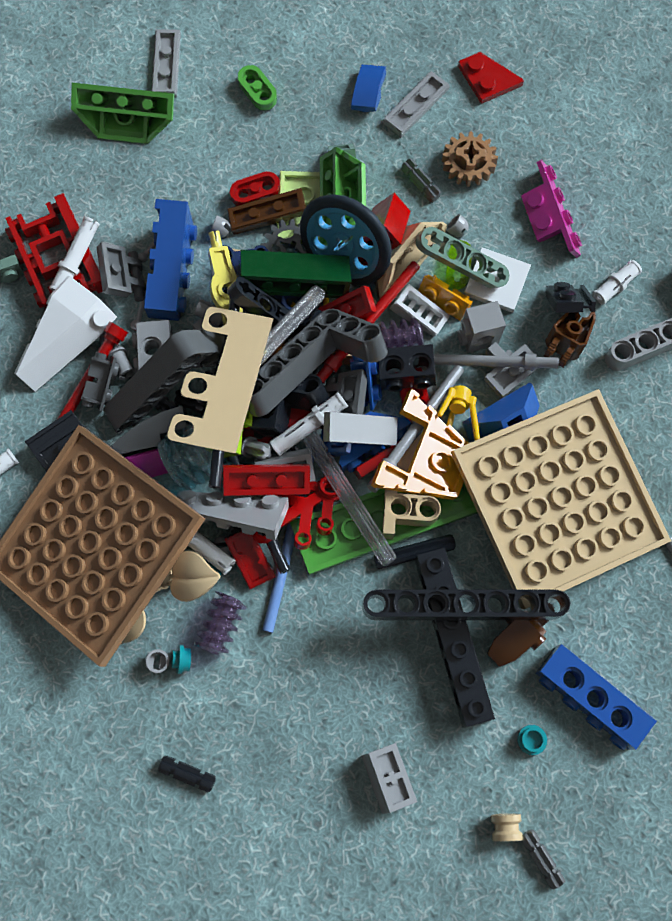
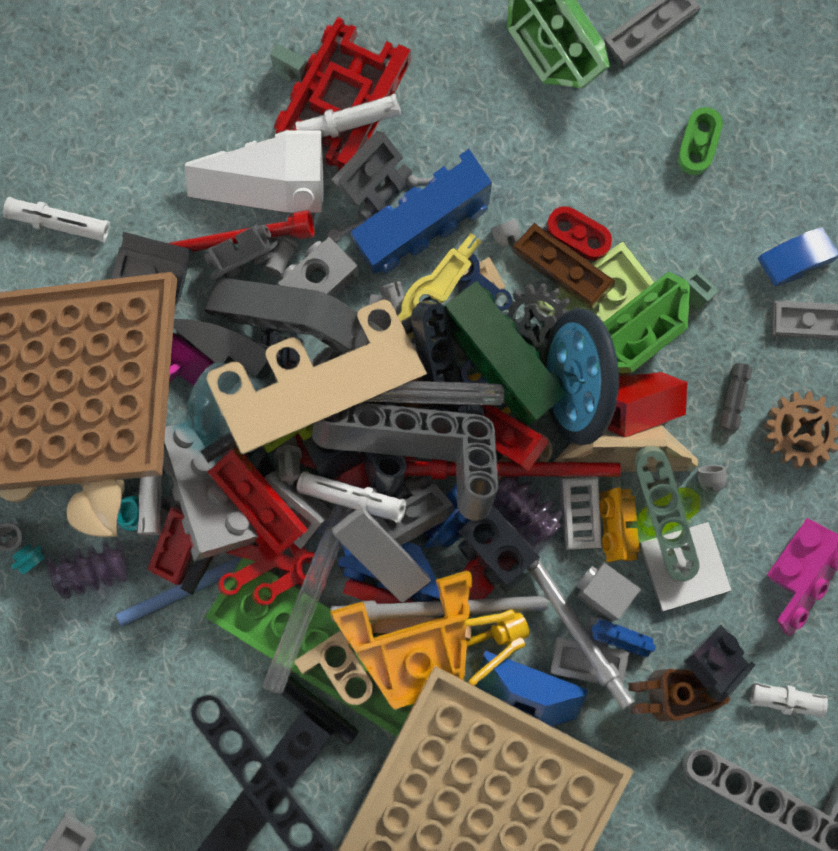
camera: 55 degrees right, 5 degrees up
(514, 340) = (623, 638): none -> blue axle

